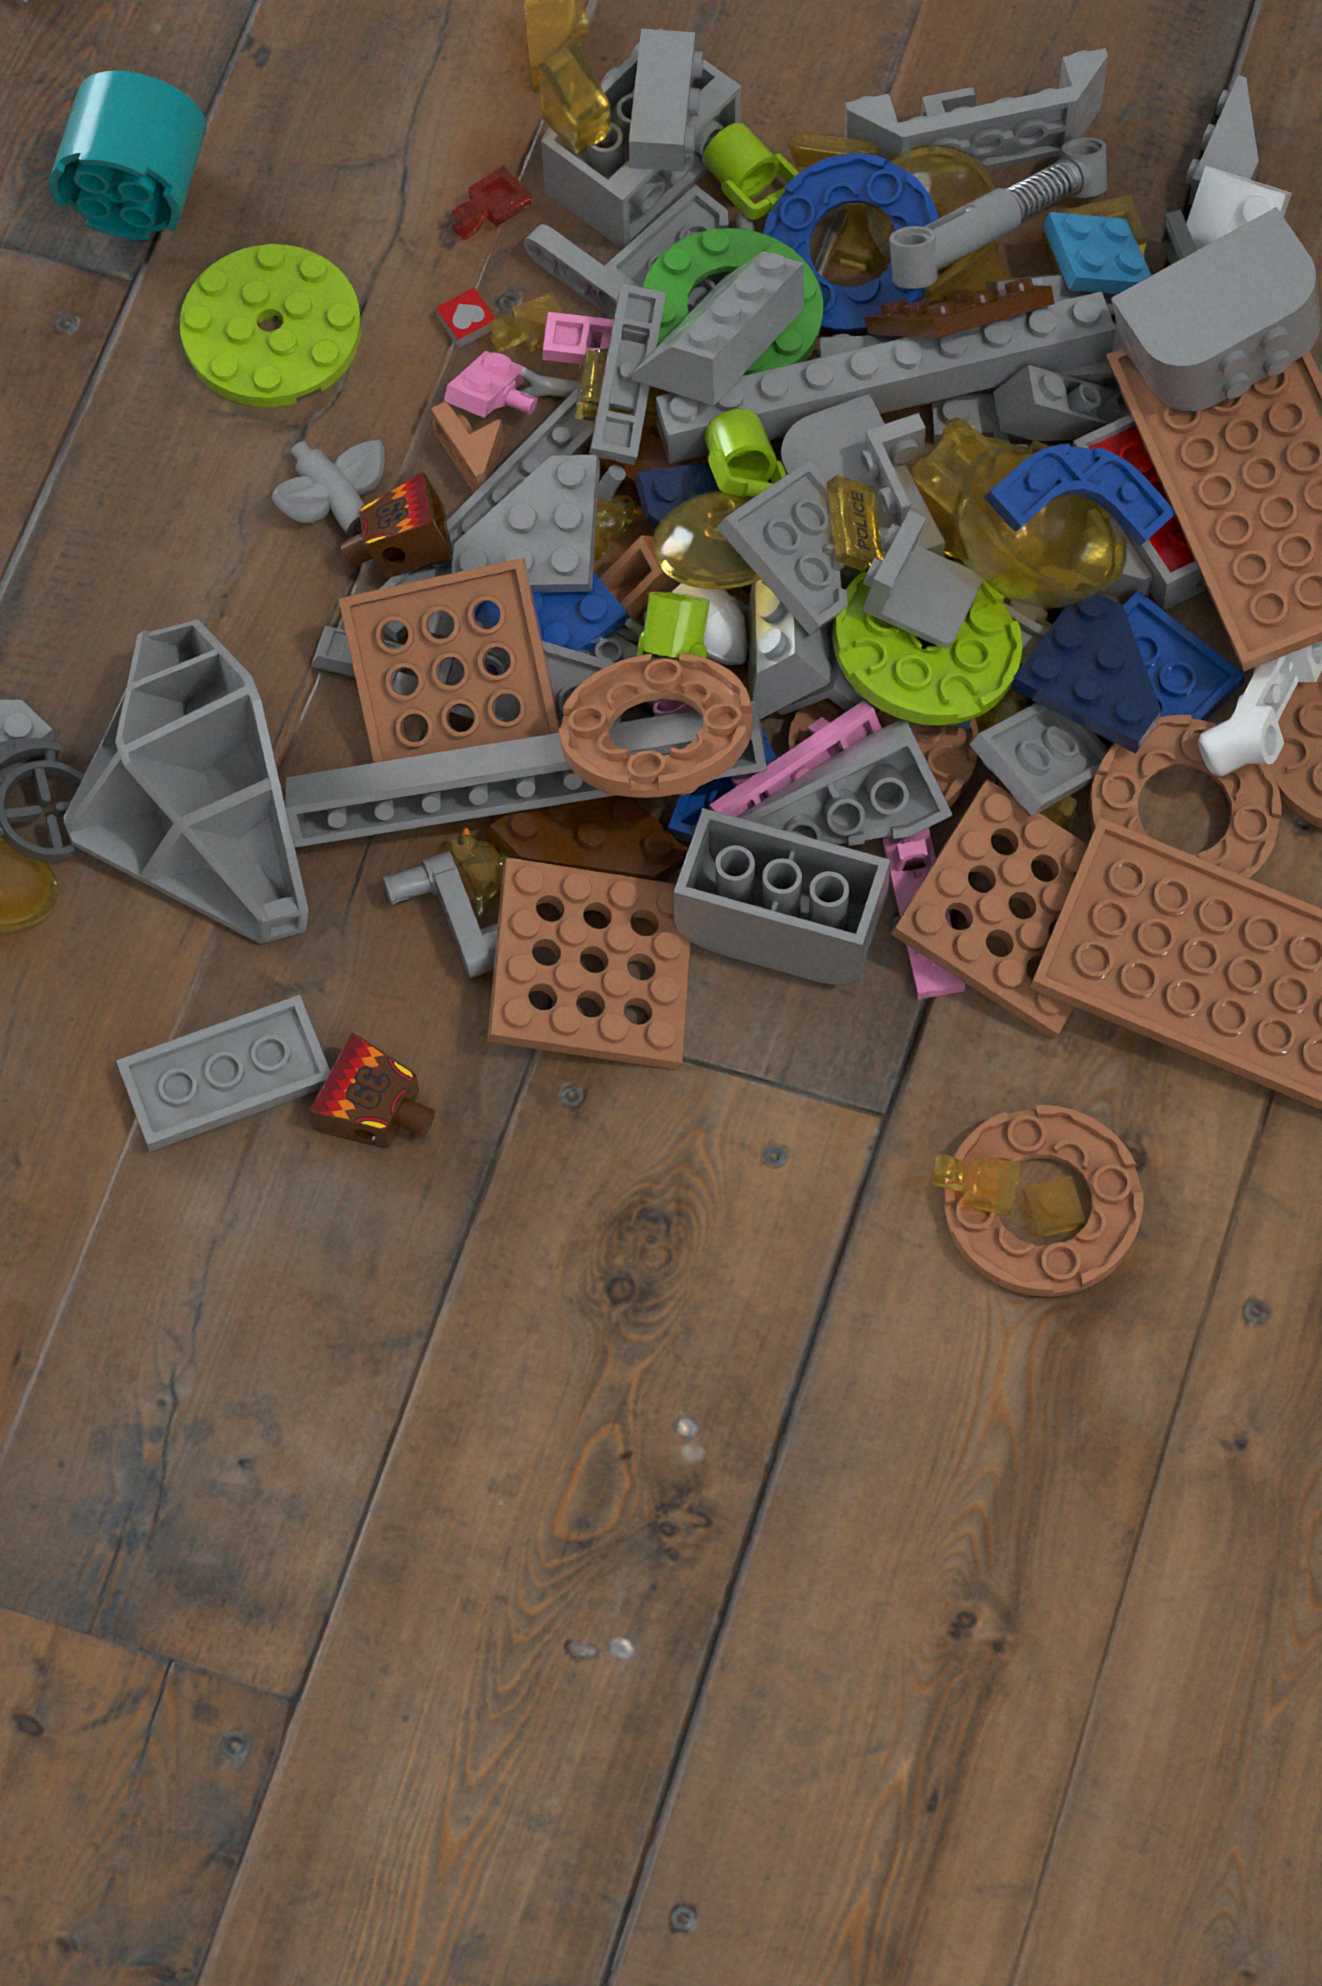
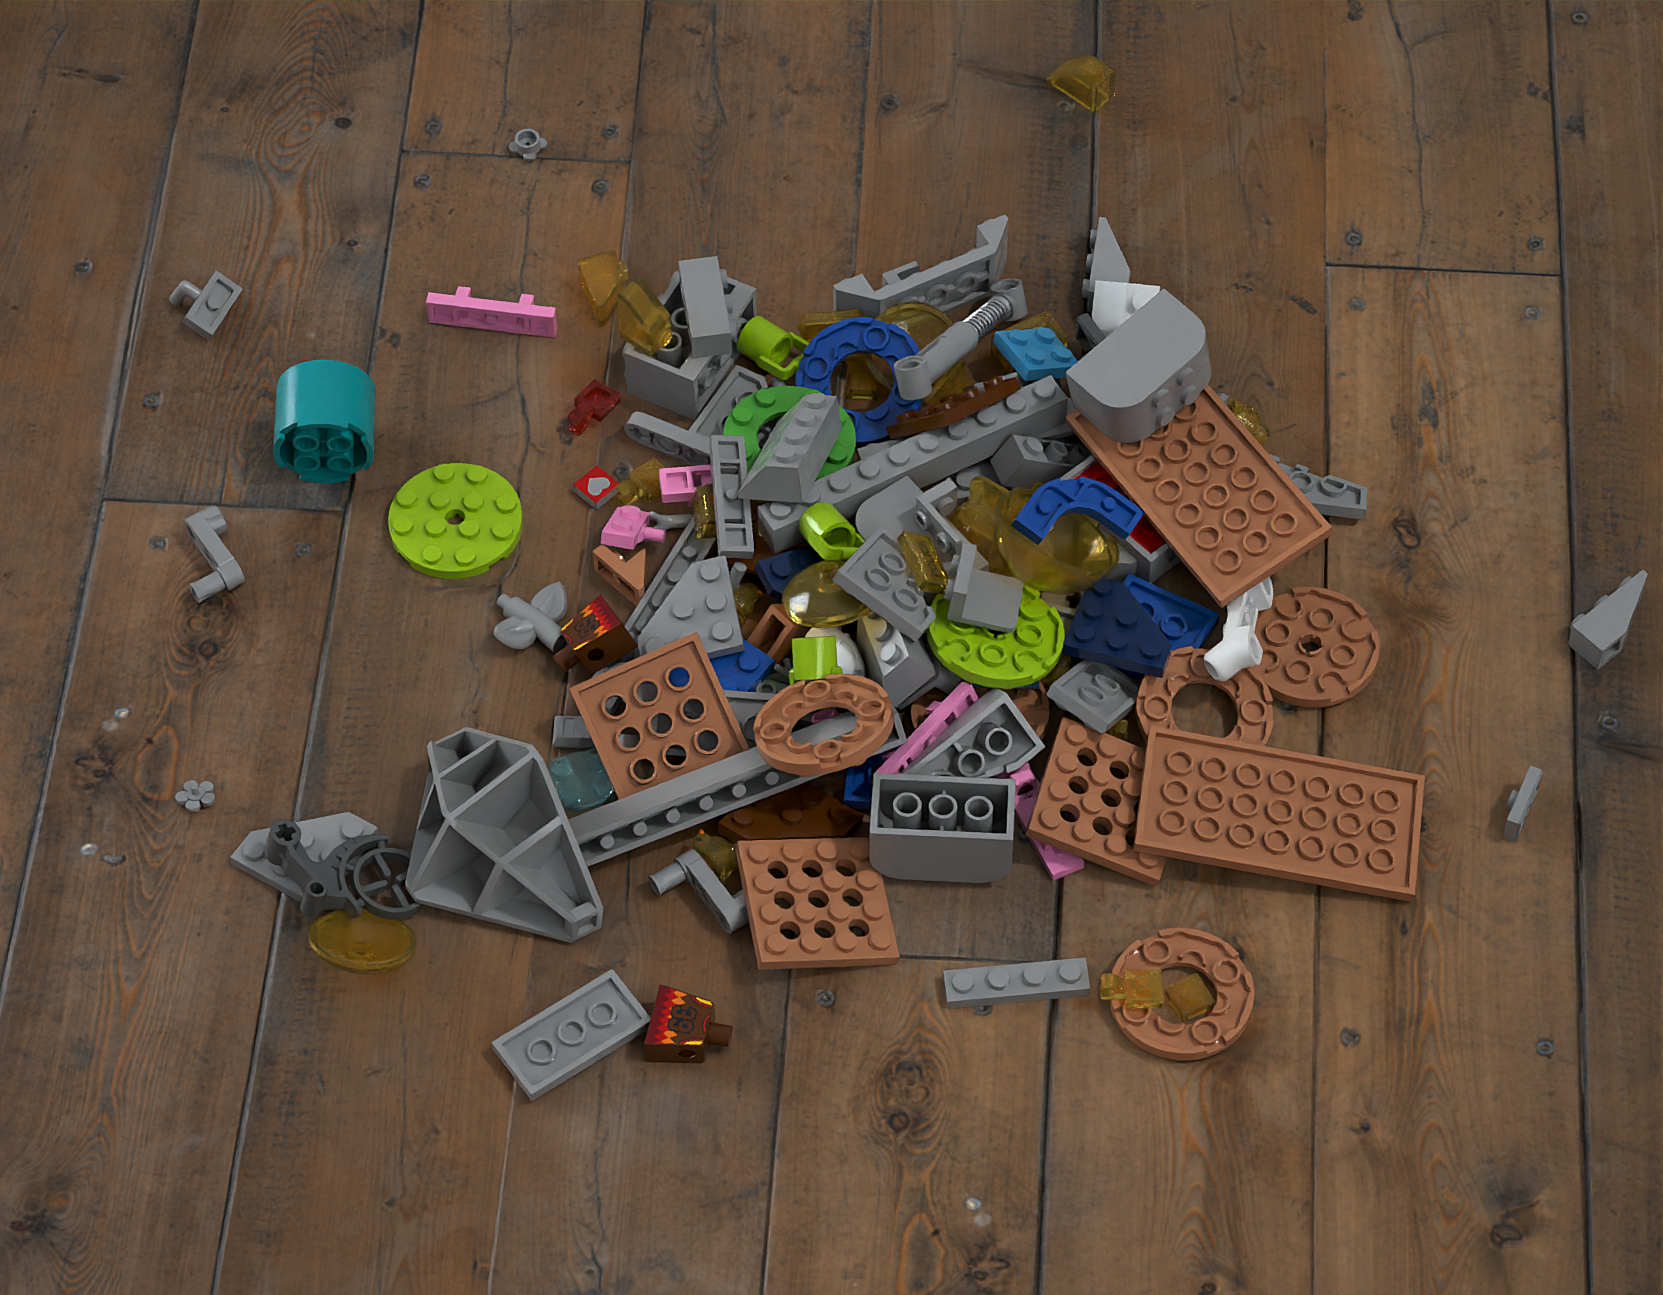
camera: 15 degrees left, 10 degrees down
(329, 723) = (581, 780): none -> clear light blue dish
(364, 37) = (492, 314): none -> bright pink hinge
(828, 1133) = (1016, 983): none -> light grey plate

